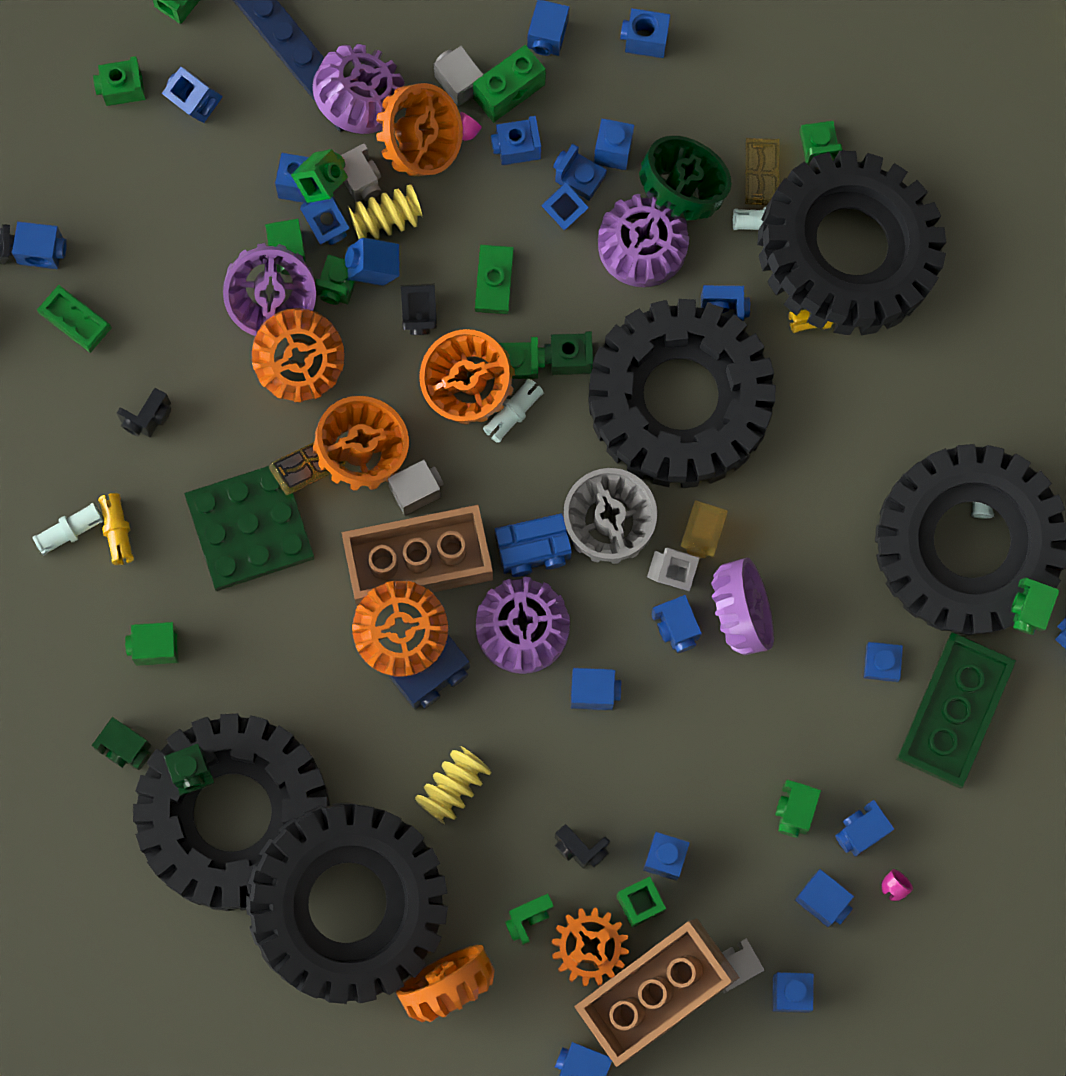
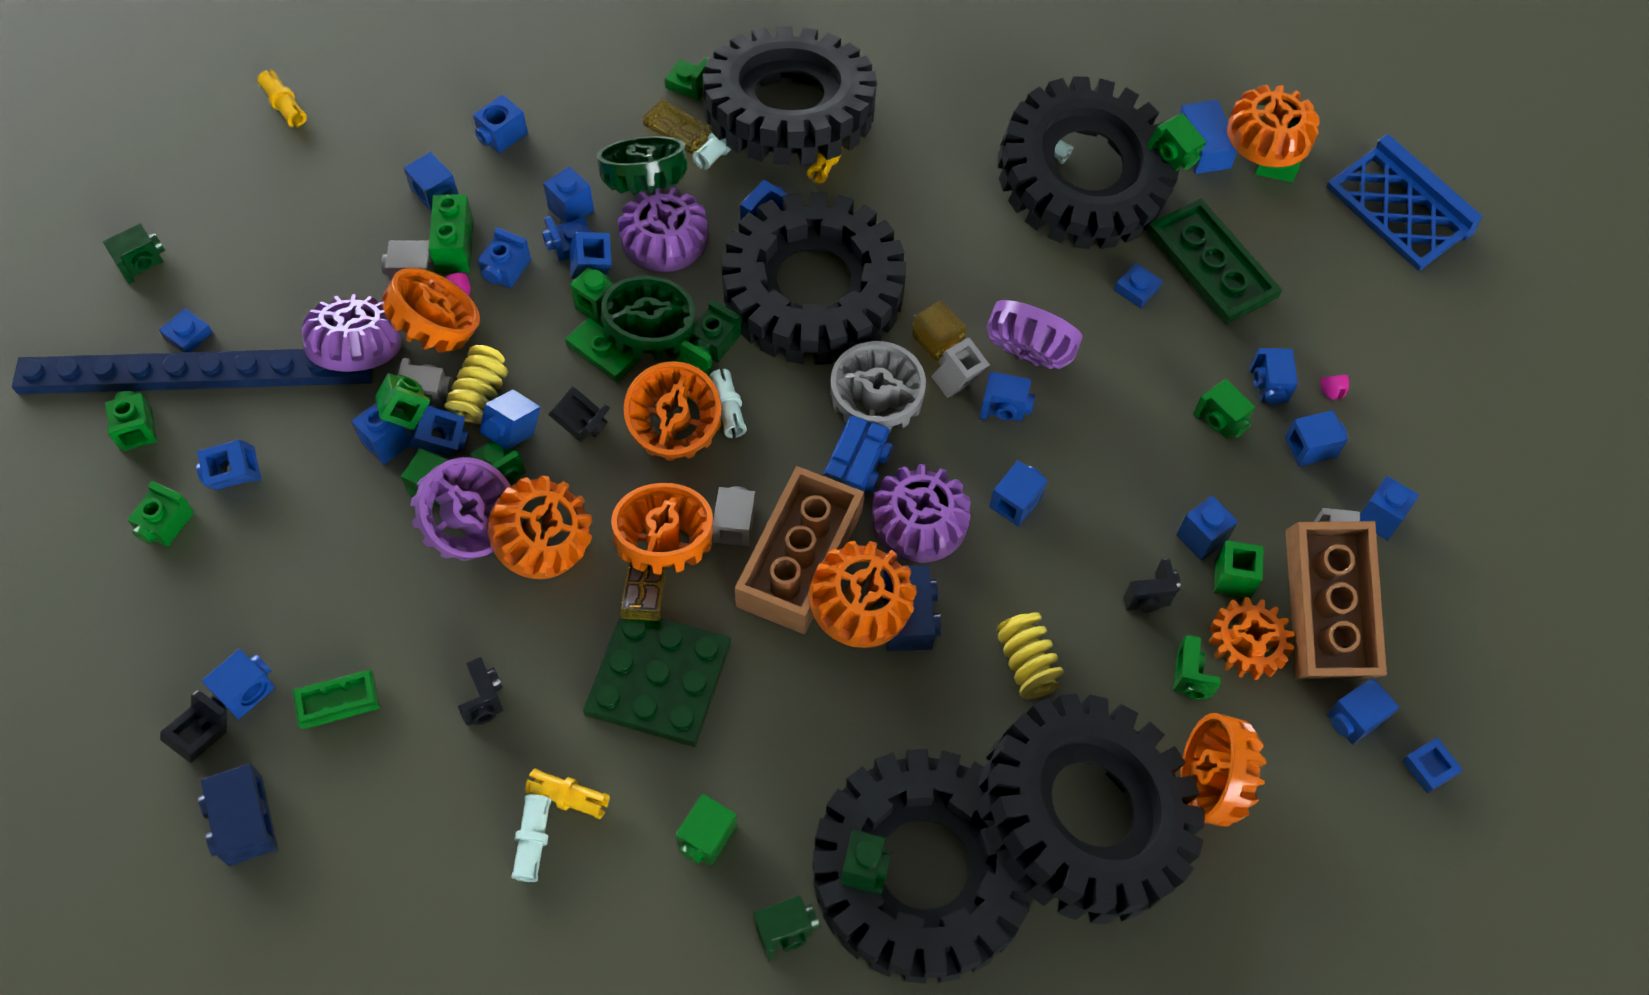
camera: 55 degrees left, 15 degrees down
(535, 238) = (588, 288): none -> green brick
(552, 276) = (642, 310): none -> dark green gear

